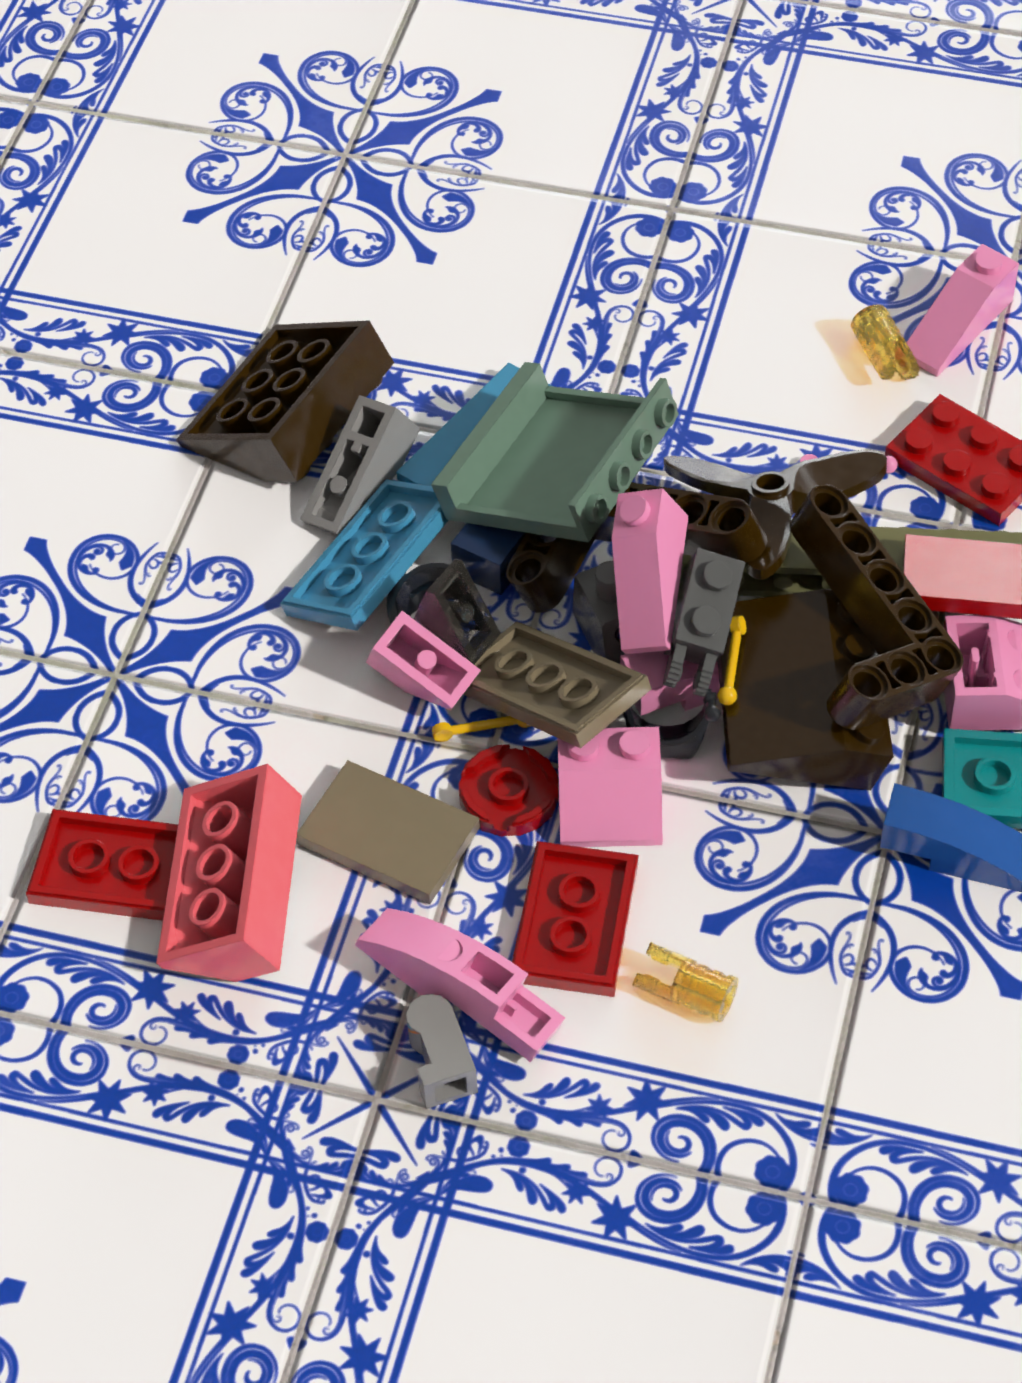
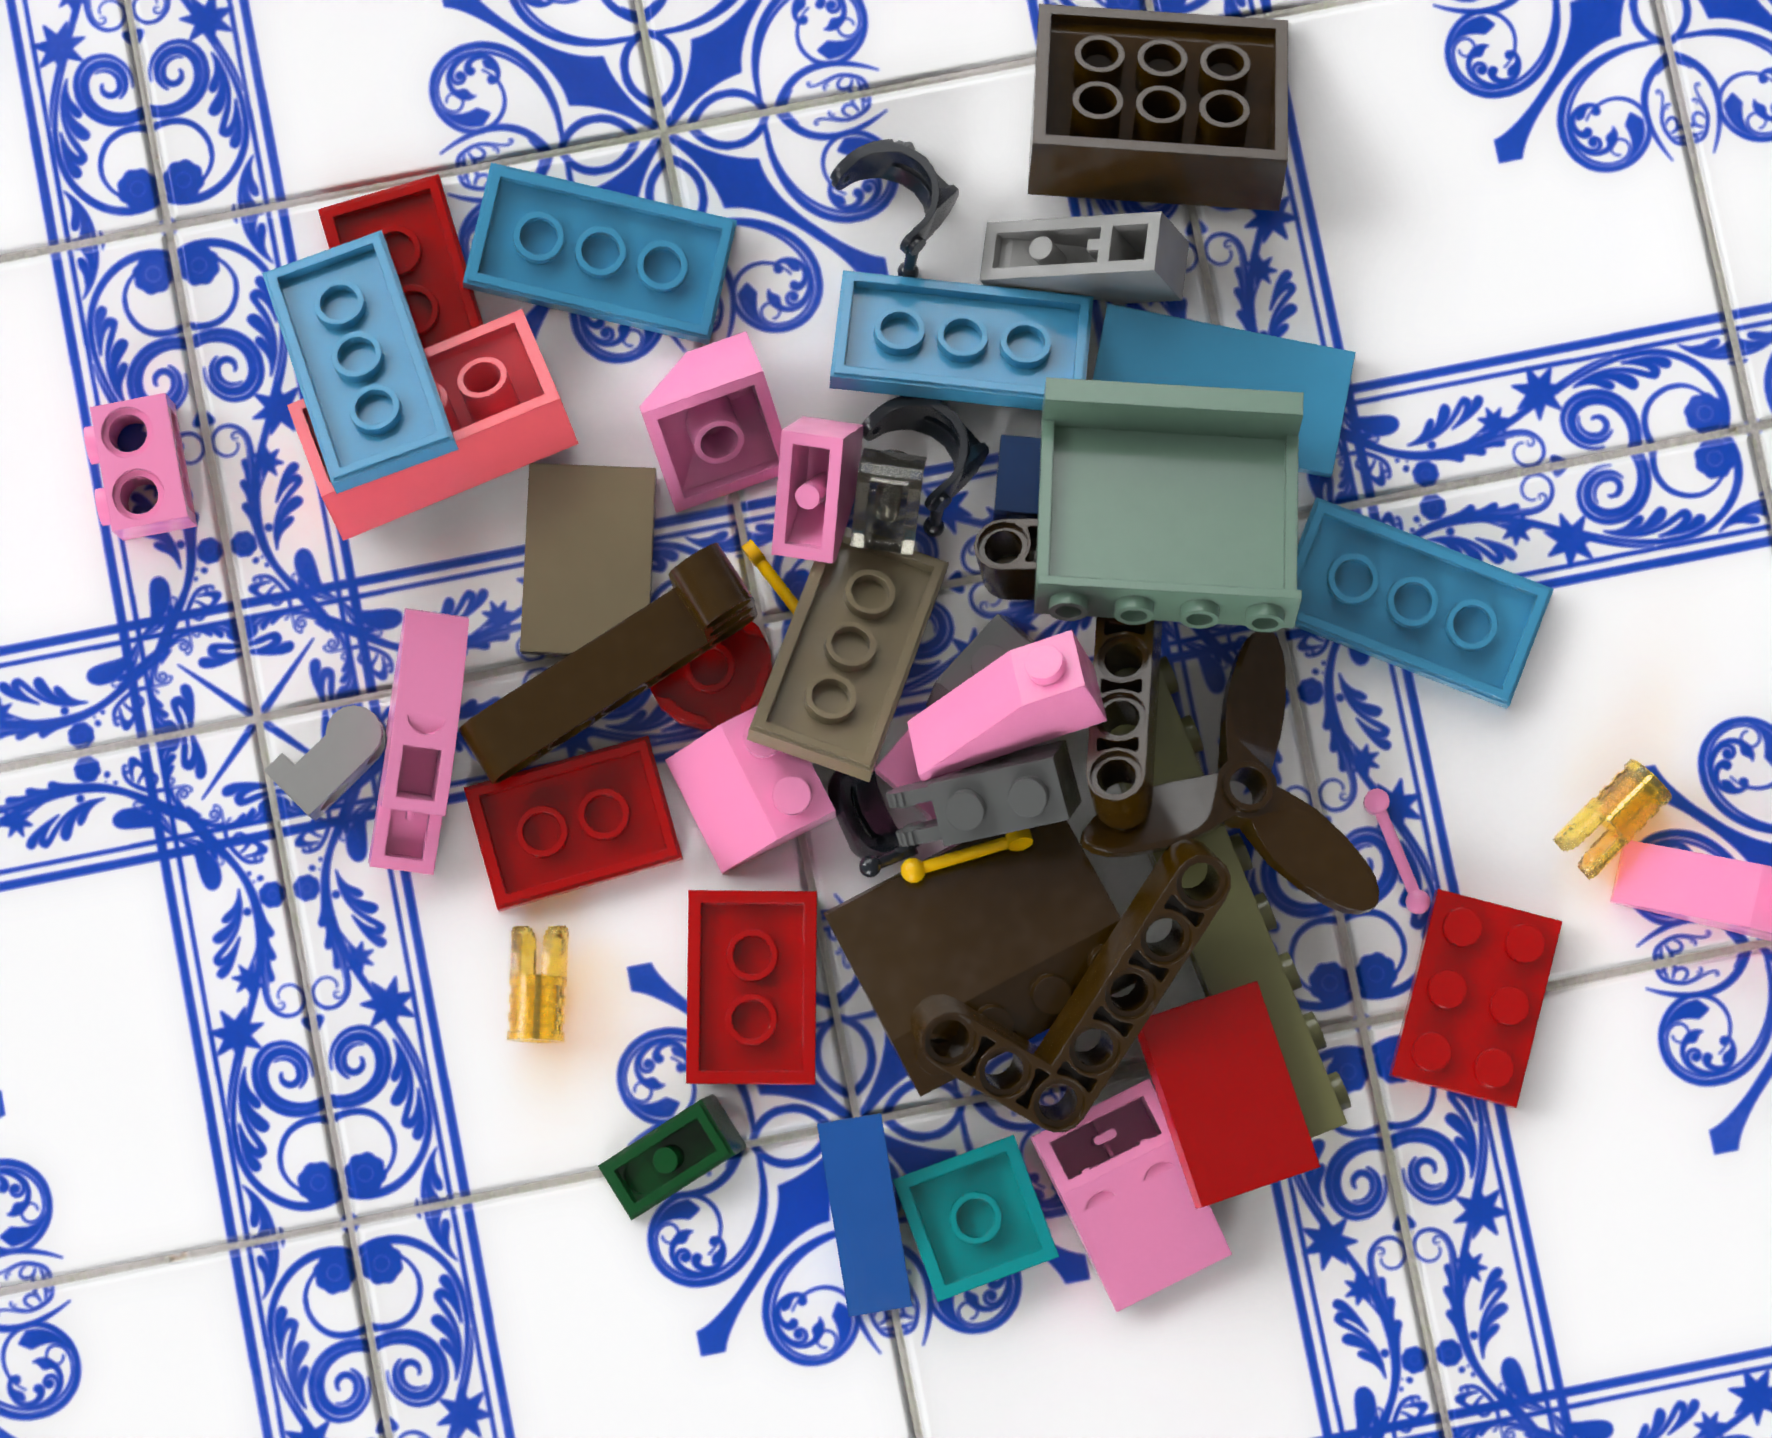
camera: 60 degrees right, 30 degrees up
(144, 1073) = (155, 463): none -> bright pink brick
(158, 888) = (359, 362): none -> dark azure tile
(174, 735) = (599, 253): none -> dark azure tile
(243, 537) = (906, 166): none -> black helmet
(342, 702) = (714, 423): none -> bright pink slope
(477, 805) = (612, 669): none -> dark brown beam
(710, 386) = (1416, 603): none -> dark azure tile
(758, 848) = (751, 987): none -> red plate
(859, 952) = (672, 1156): none -> dark green slope

